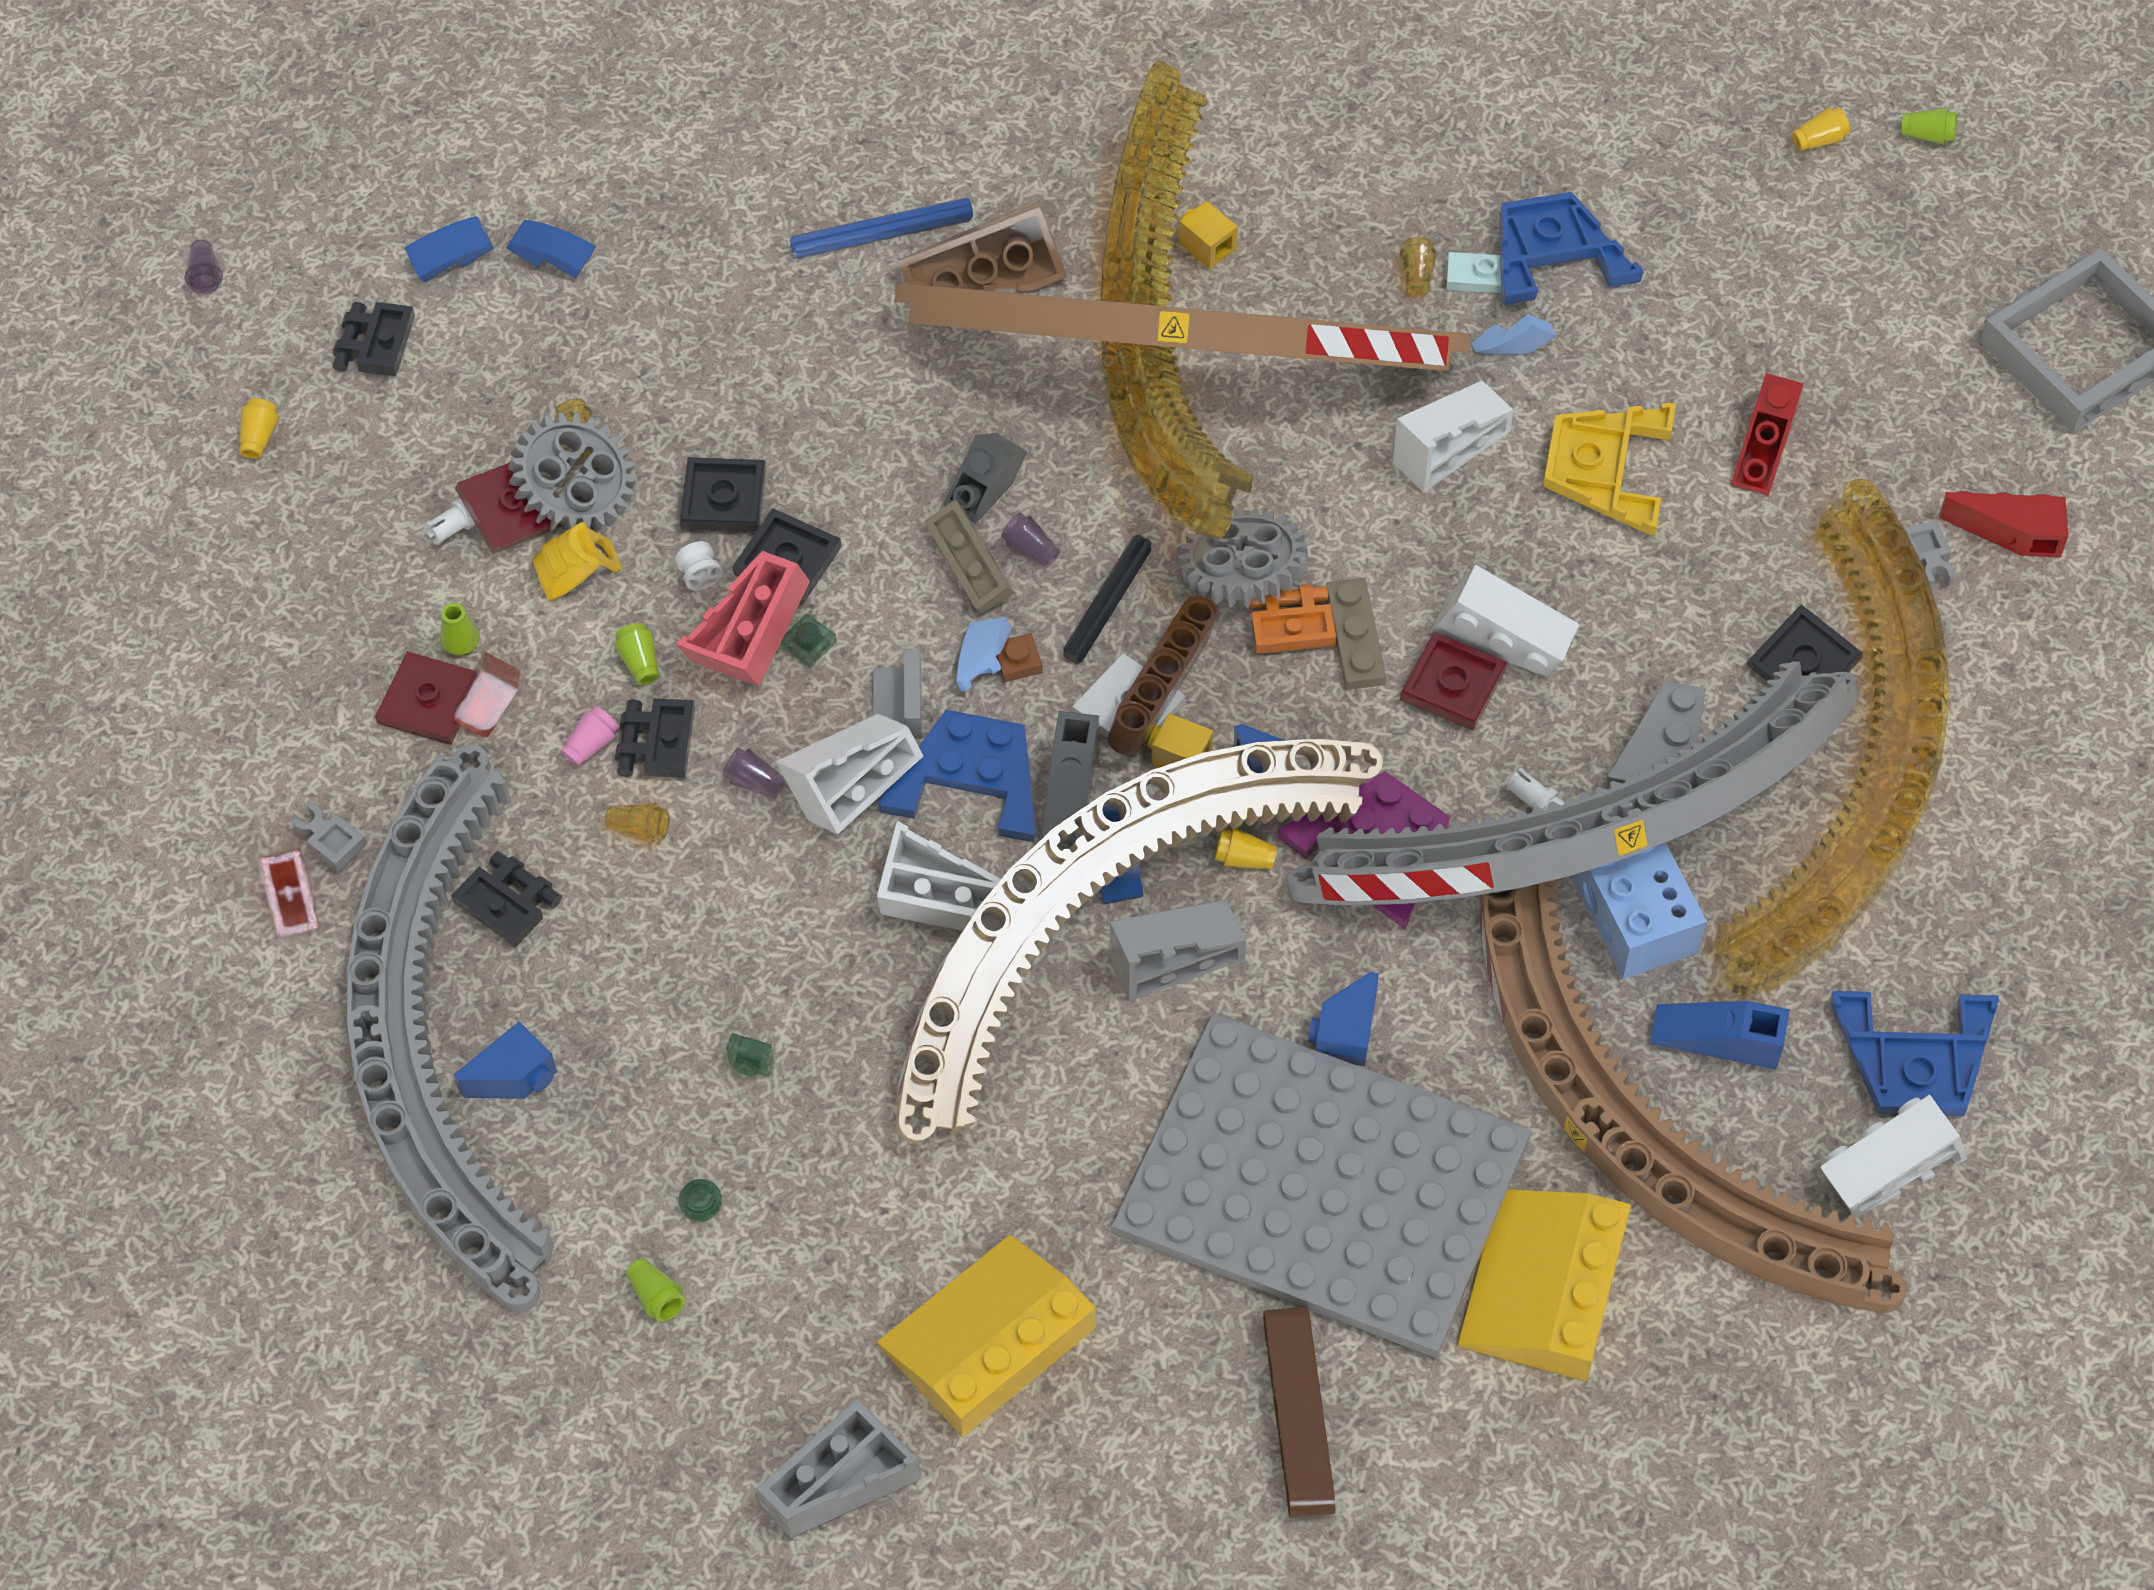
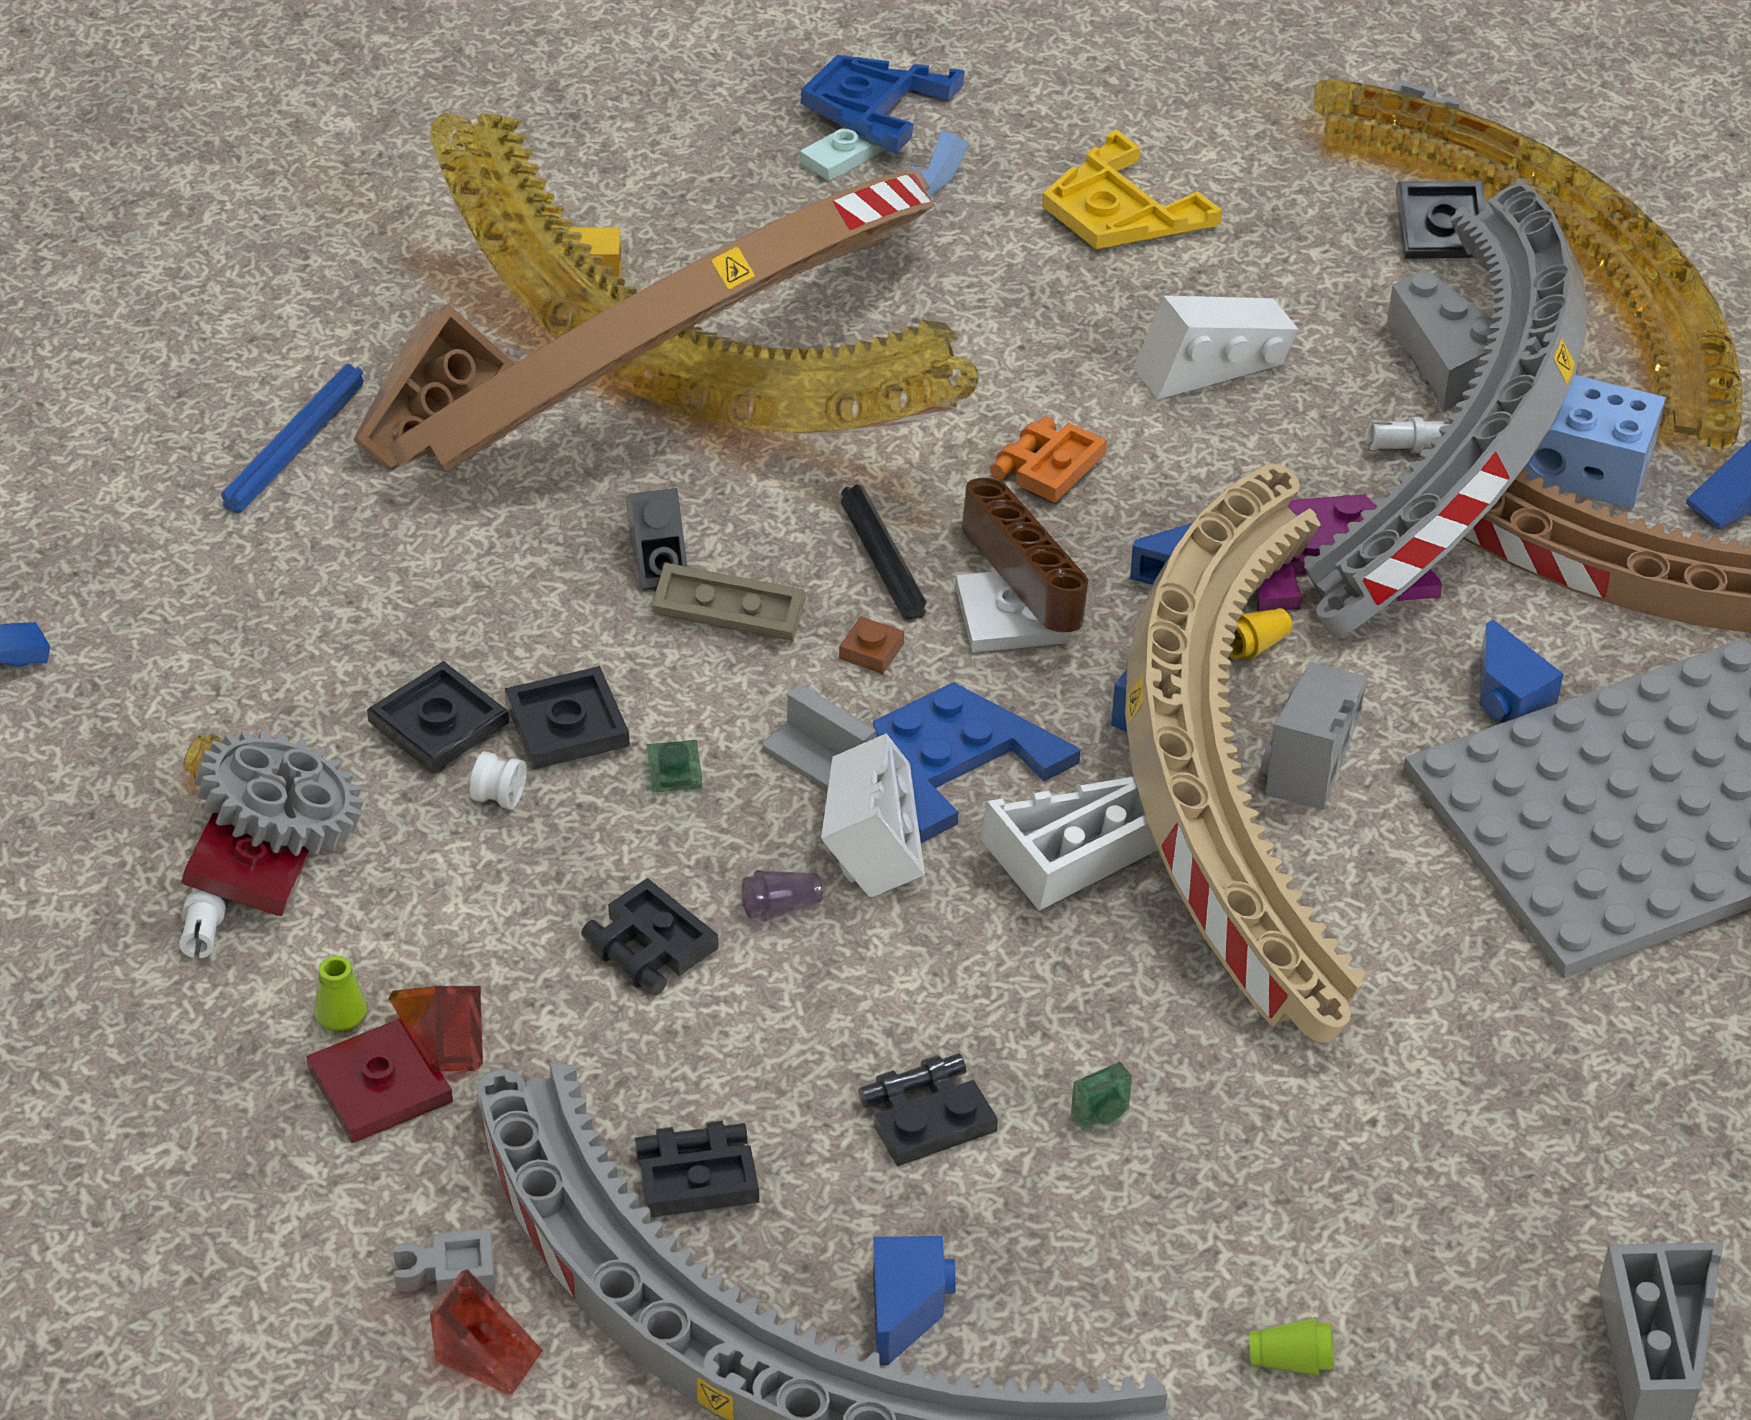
camera: 50 degrees left, 15 degrees down
(571, 559) = (366, 867): yellow piece -> none
(590, 735) = (586, 980): bright pink cone -> none
(637, 650) = (537, 886): lime cone -> none
(640, 821) = (730, 1009): clear yellow cone -> none
(658, 986) = (931, 1122): none -> black plate
(700, 1200) = (1222, 1245): clear green plate -> none
(749, 621) = (623, 778): coral wedge -> none
(979, 649) = (841, 654): light blue slope -> none
(989, 1333) = (1599, 1124): yellow slope -> none
(1029, 539) = (761, 555): clear purple cone -> none
(1071, 768) = (1051, 680): dark grey slope -> none
(1178, 741) = (1111, 599): yellow brick -> none
(1248, 561) = (959, 443): light grey gear -> none
(1356, 634) = (1126, 441): dark tan plate -> none
(1417, 265) = (788, 172): clear yellow cone -> none
(1449, 433) = (984, 257): white wedge -> none
(1453, 681) = (1230, 409): dark red plate -> none
(1767, 433) = (1202, 102): red slope -> none
(2016, 522) = (1444, 48): red slope -> none

